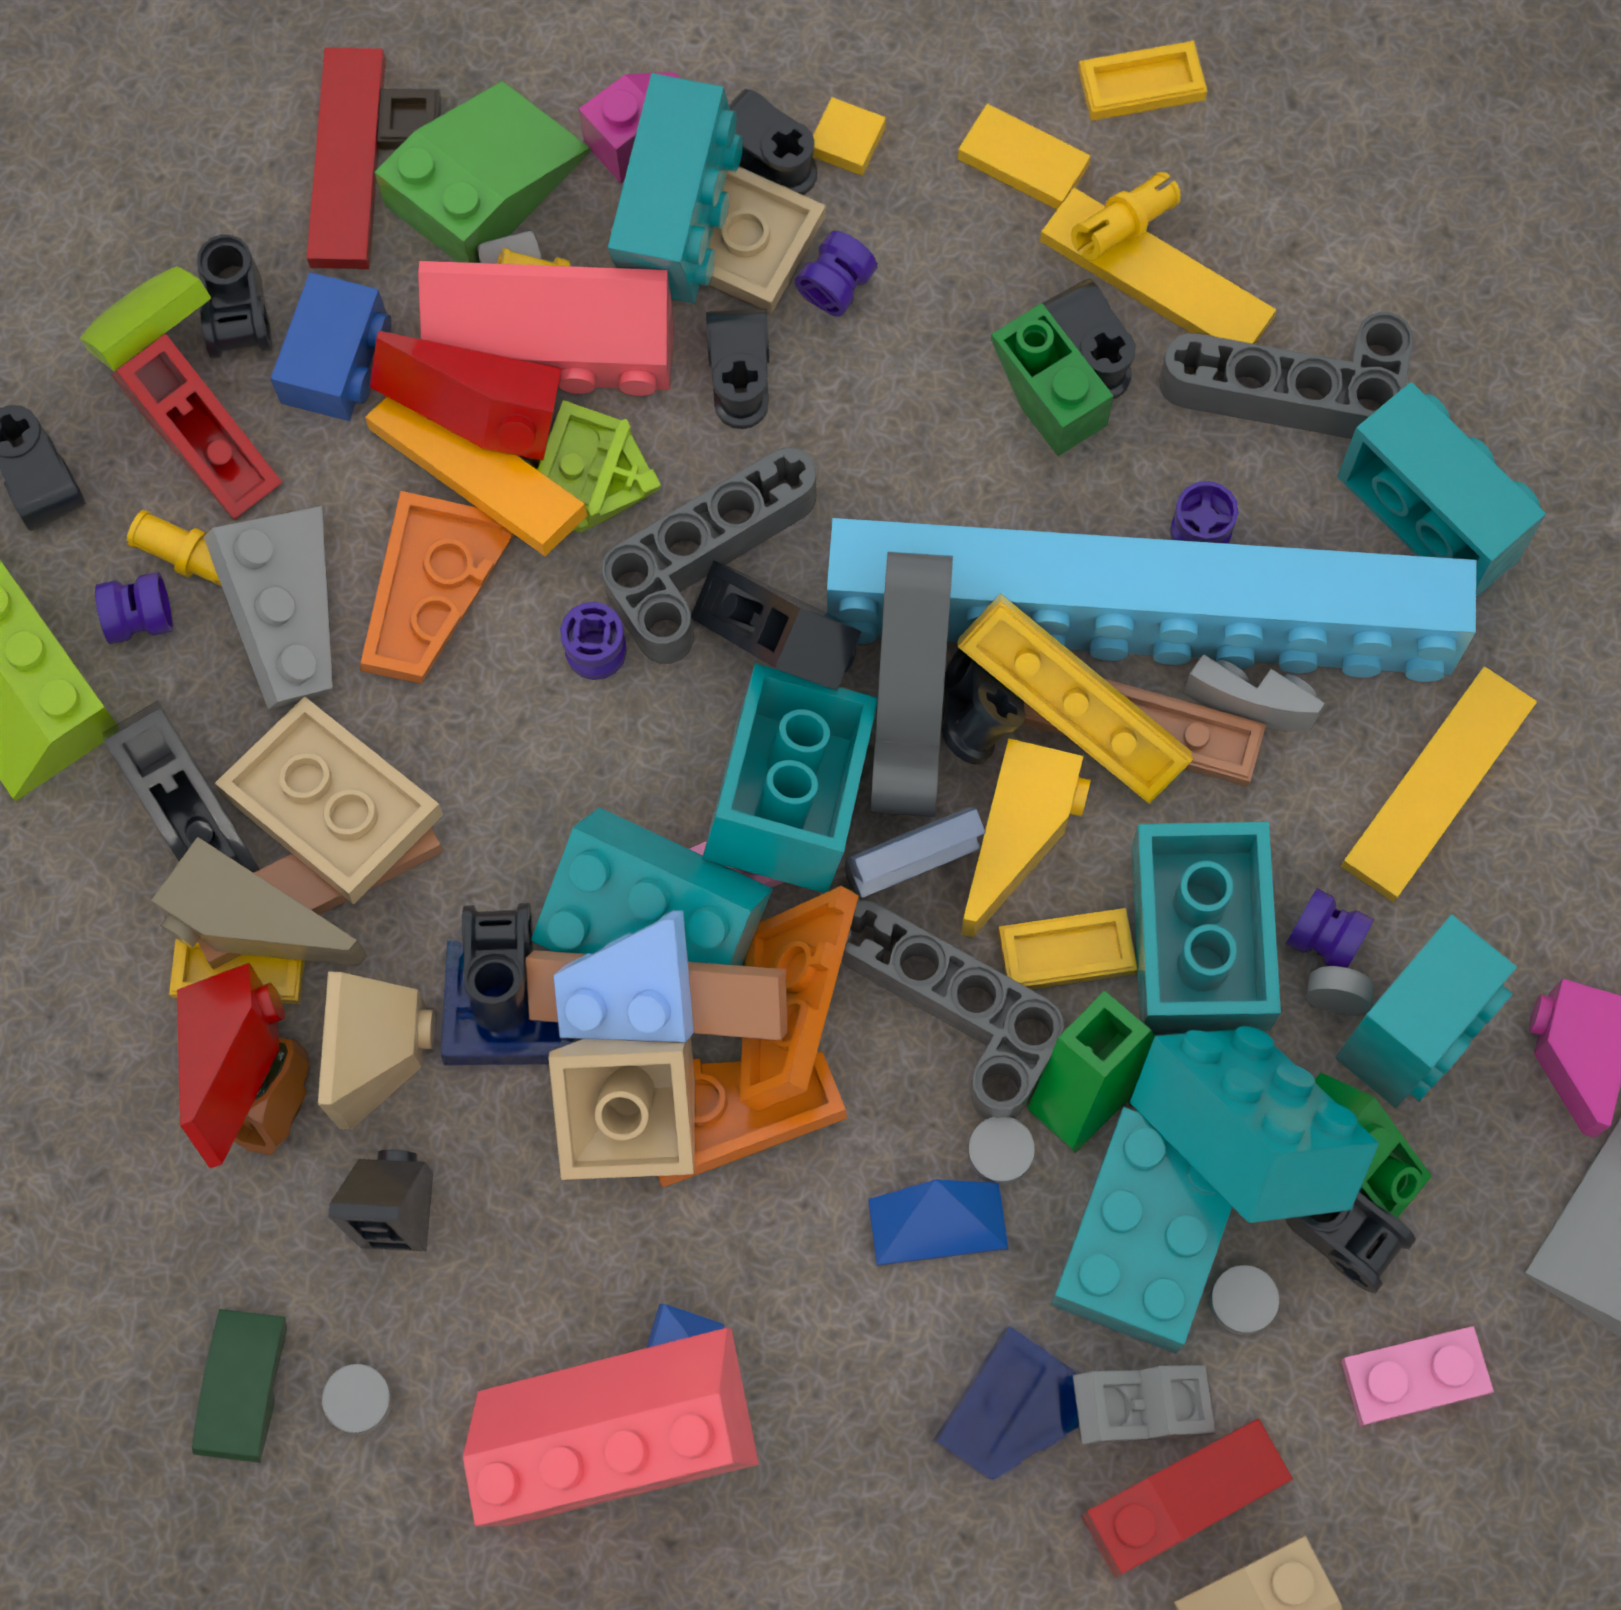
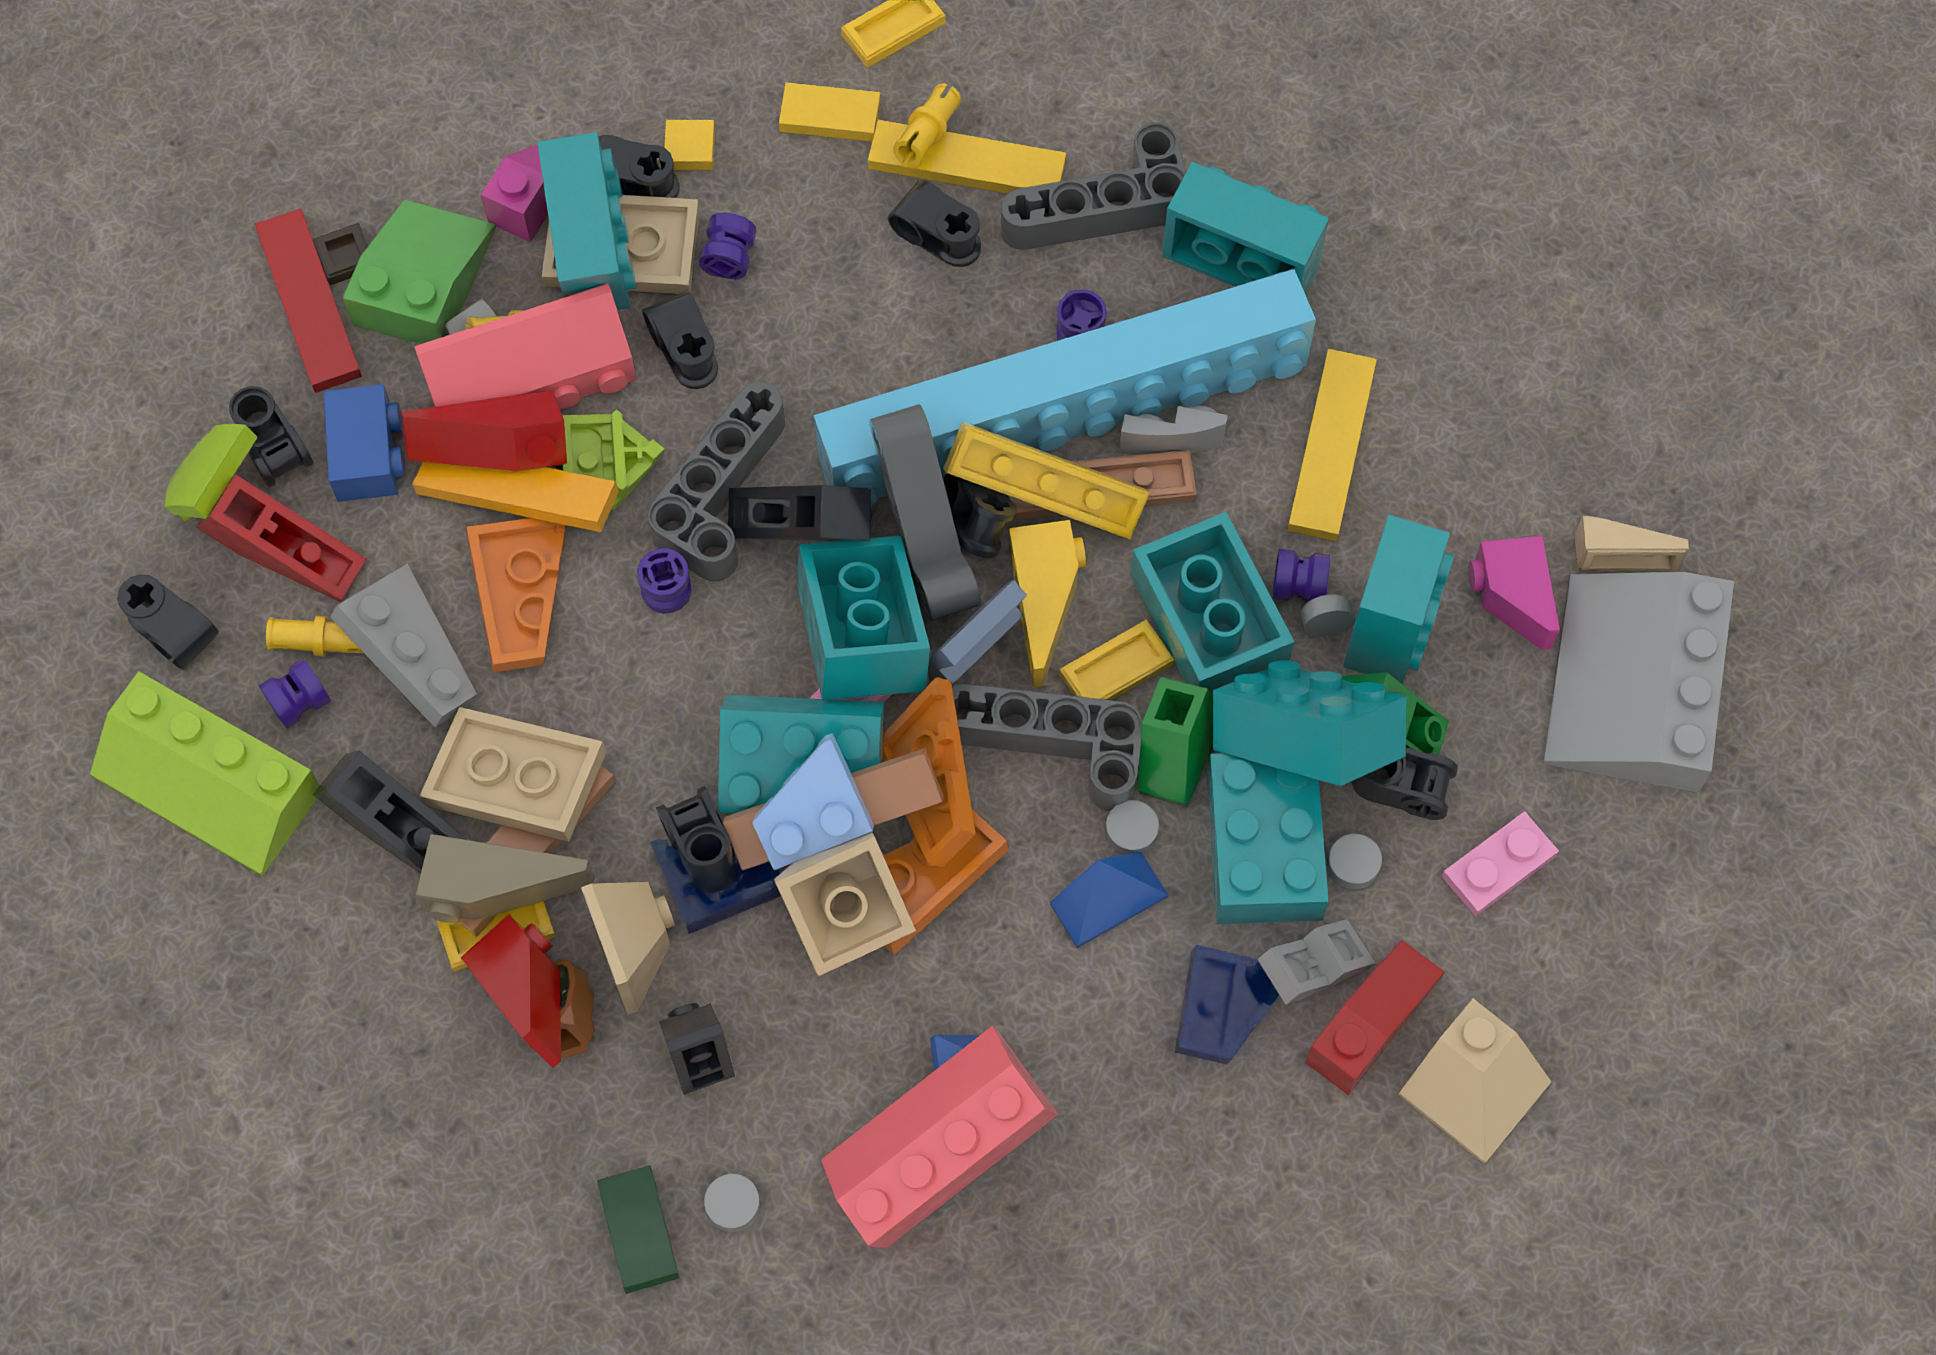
camera: 25 degrees left, 5 degrees down
(1052, 380) = (925, 262): green slope -> none

